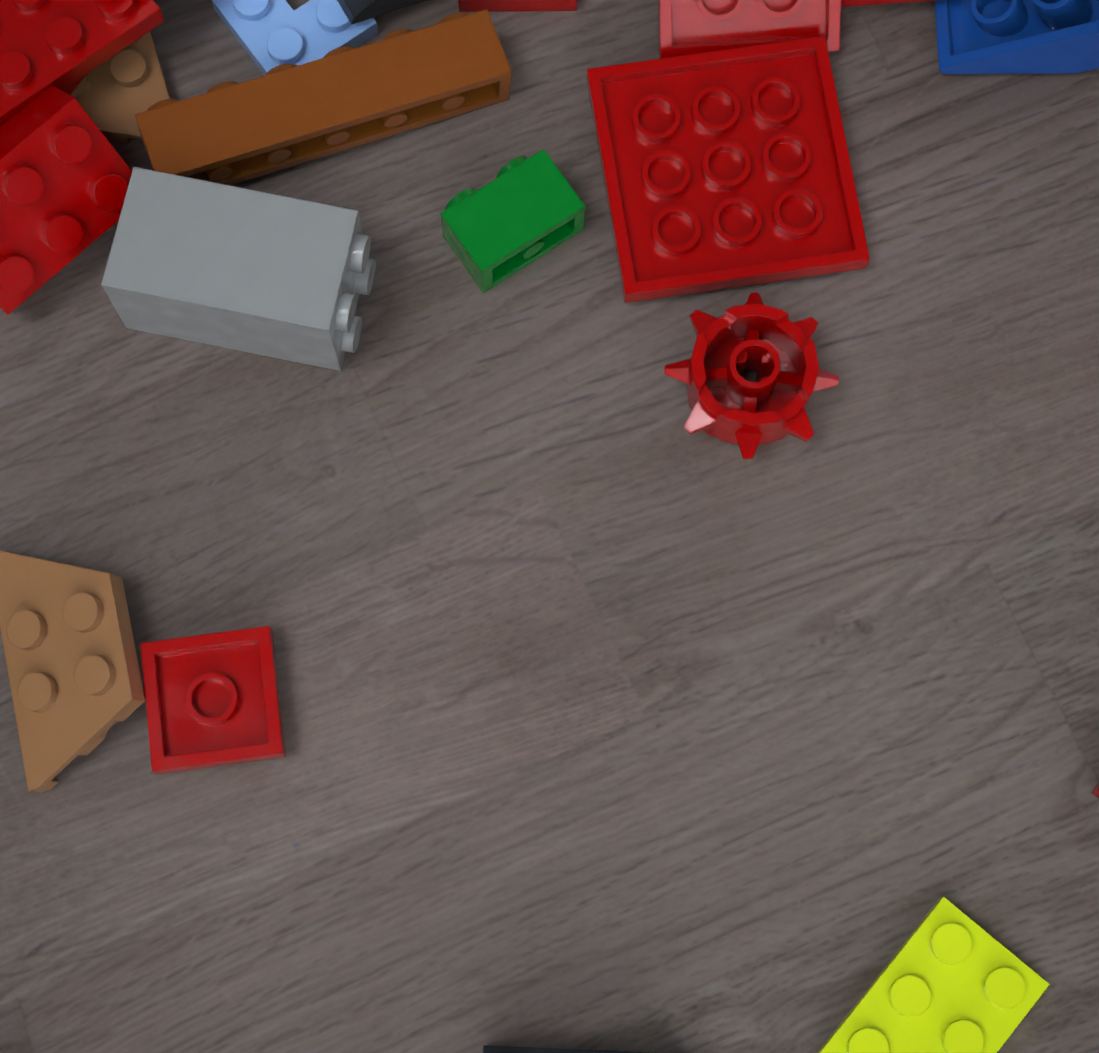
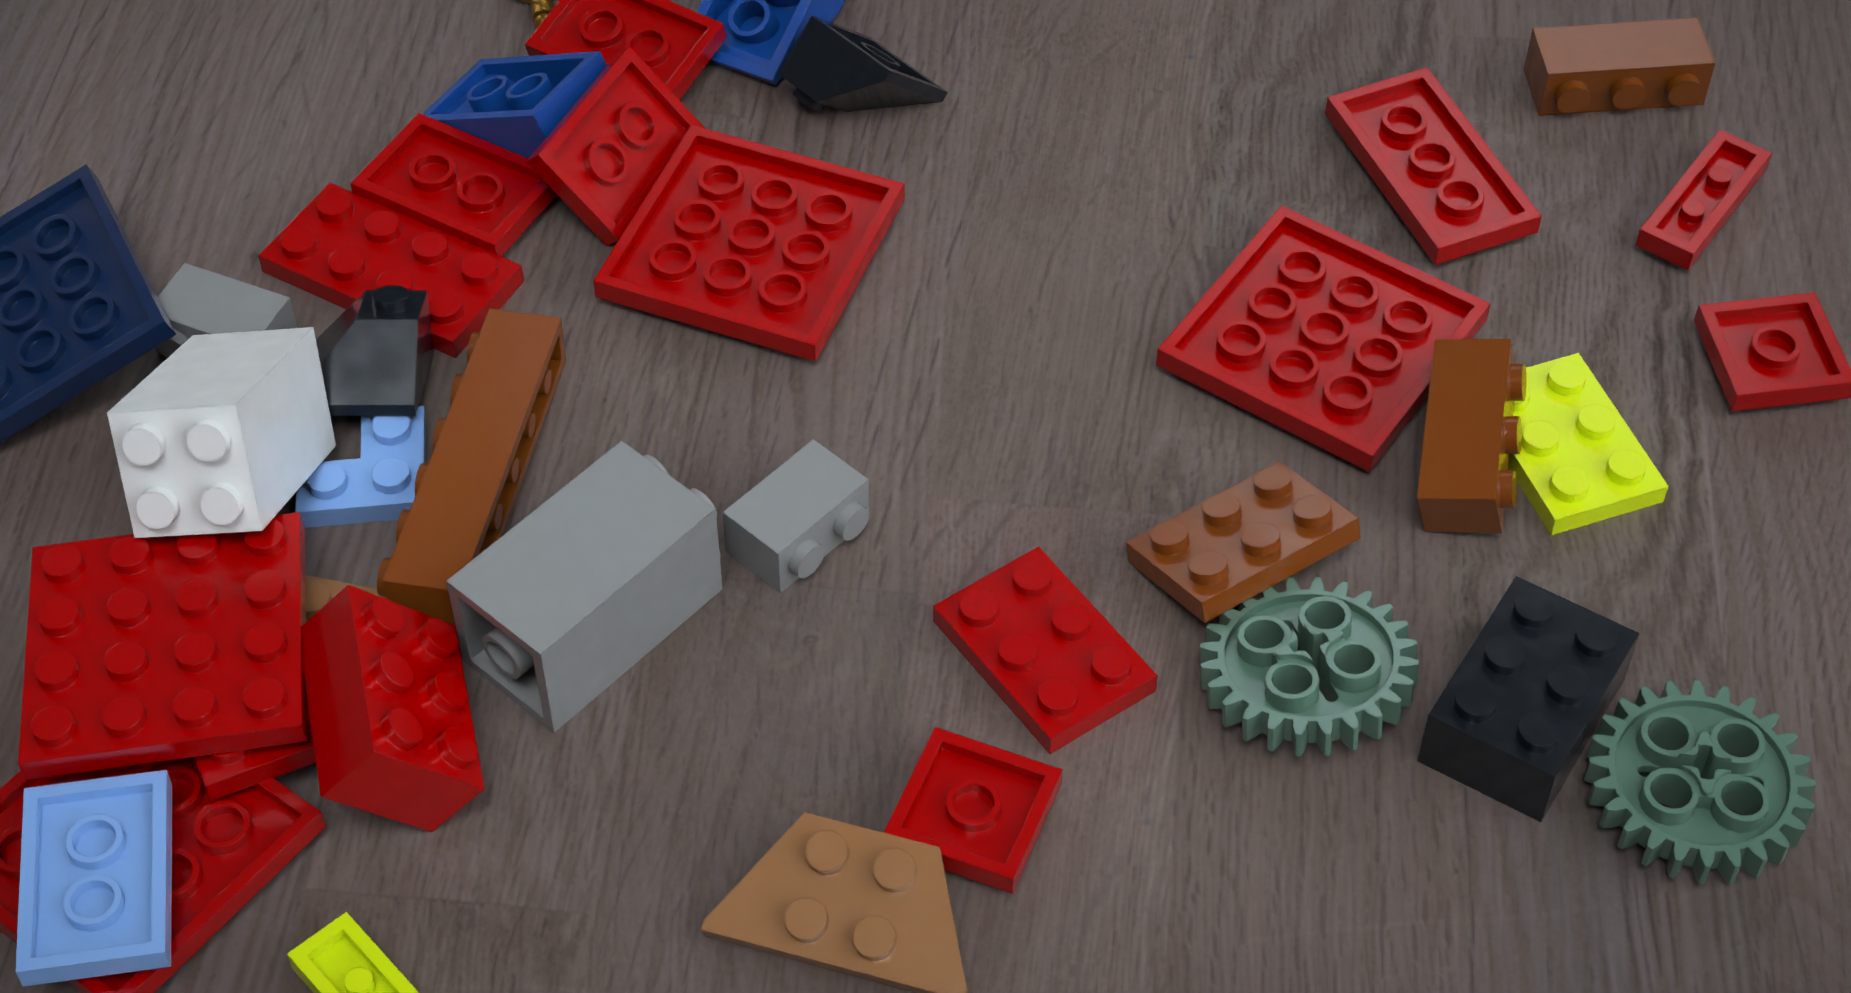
camera: 60 degrees left, 25 degrees down
(419, 668) = (1044, 649): none -> red plate
(429, 390) = (797, 516): none -> light grey brick
(512, 219) = (685, 393): green brick -> none
(559, 943) = (1343, 655): none -> sand green gear
(625, 780) = (1242, 541): none -> dark orange plate
(759, 341) = (950, 294): red brick -> none
(858, 931) = (1470, 436): none -> dark orange brick
(925, 733) = (1321, 336): none -> red plate
(992, 136) = (852, 72): none -> black slope

